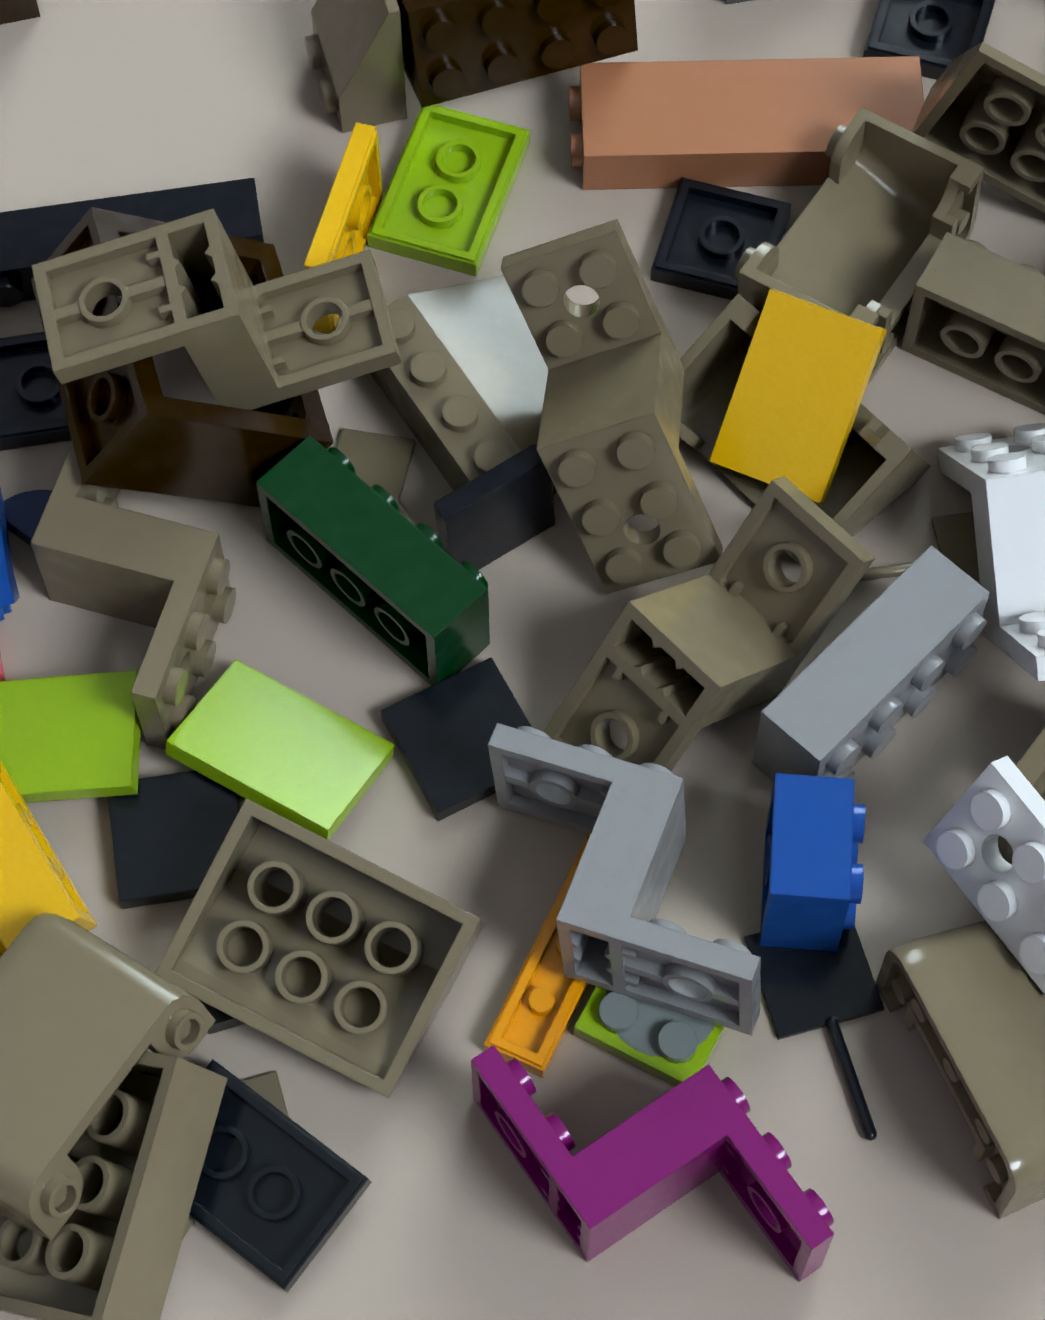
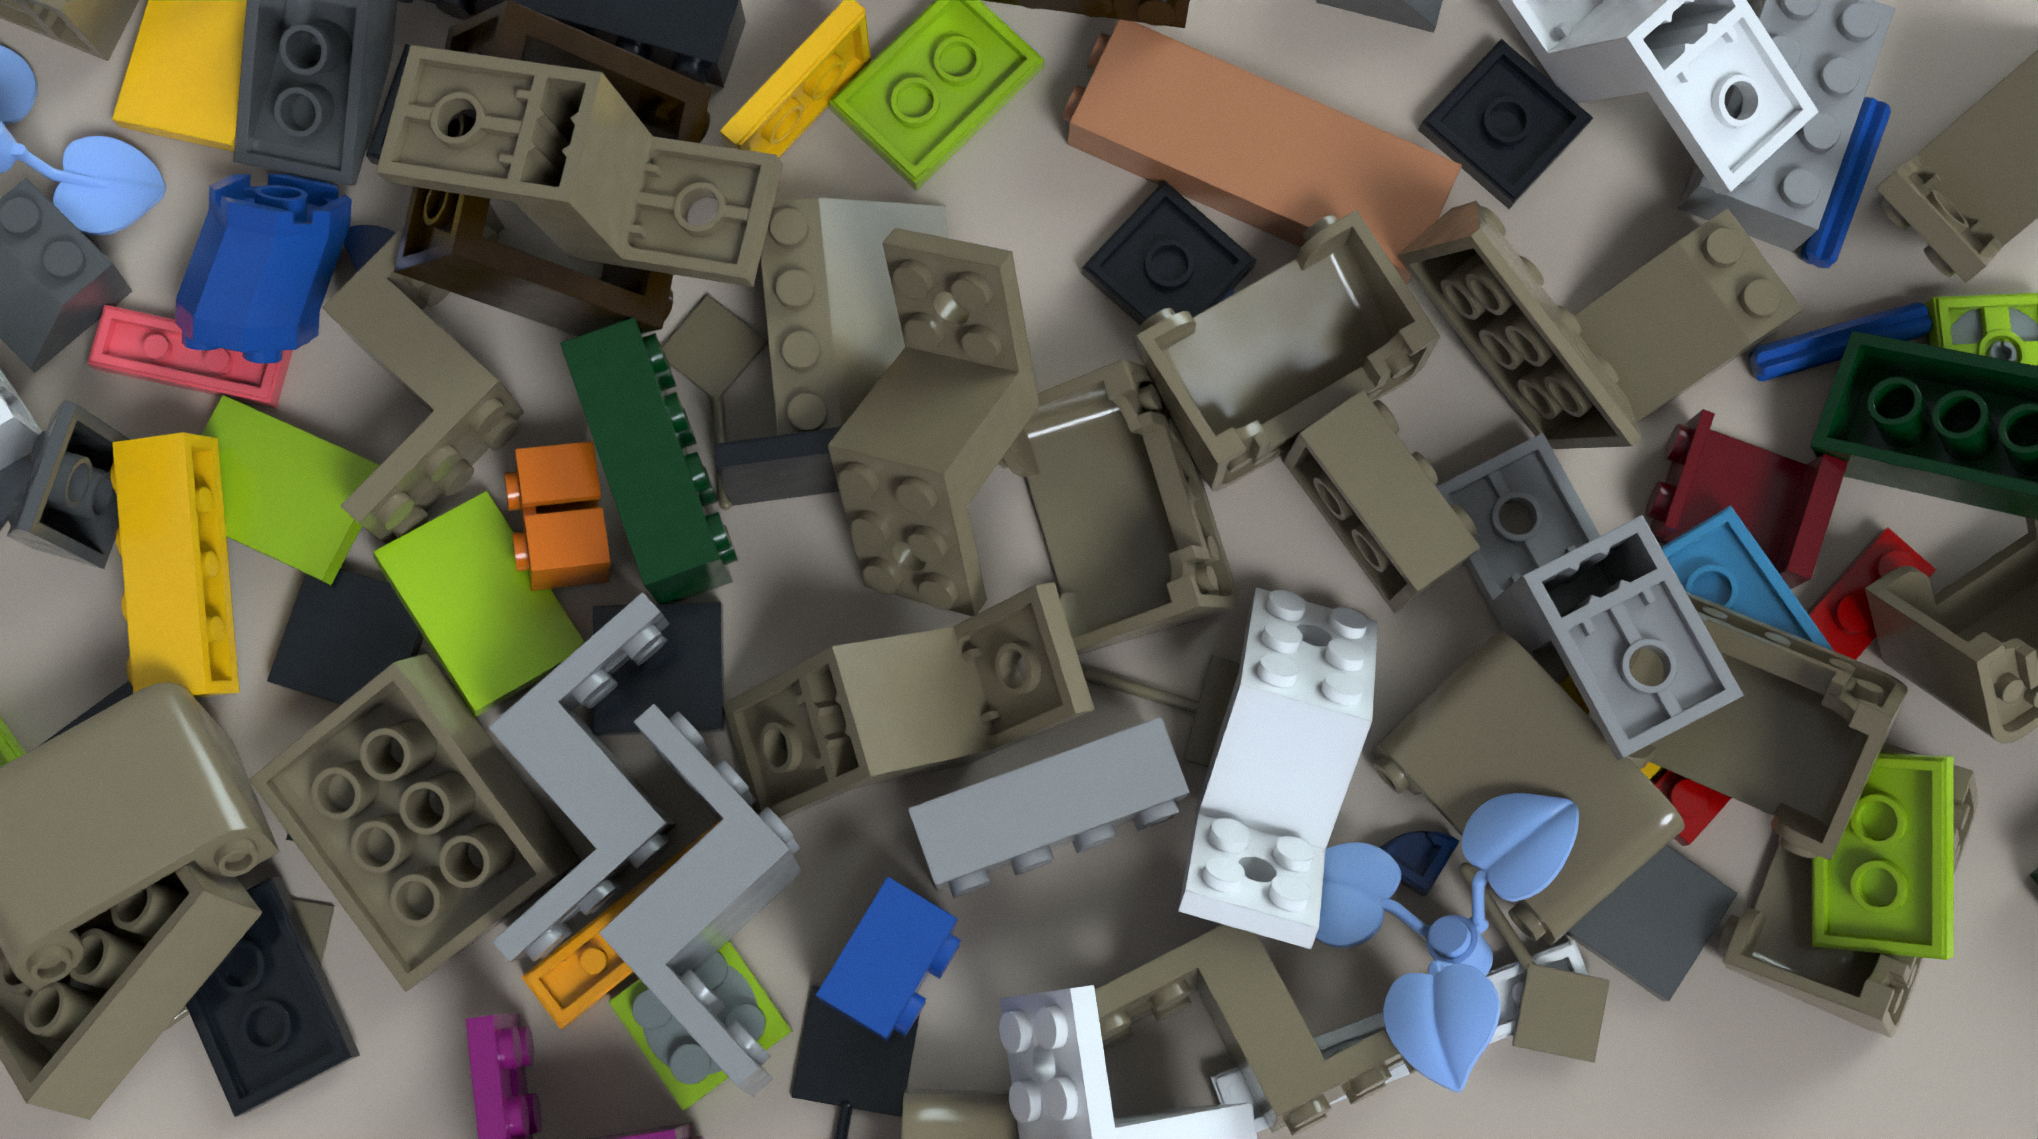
camera: 20 degrees right, 15 degrees up
(319, 658) = (560, 516): none -> orange piece
(461, 835) = (585, 778): none -> light grey bracket
(797, 394) = (1131, 486): yellow tile -> none

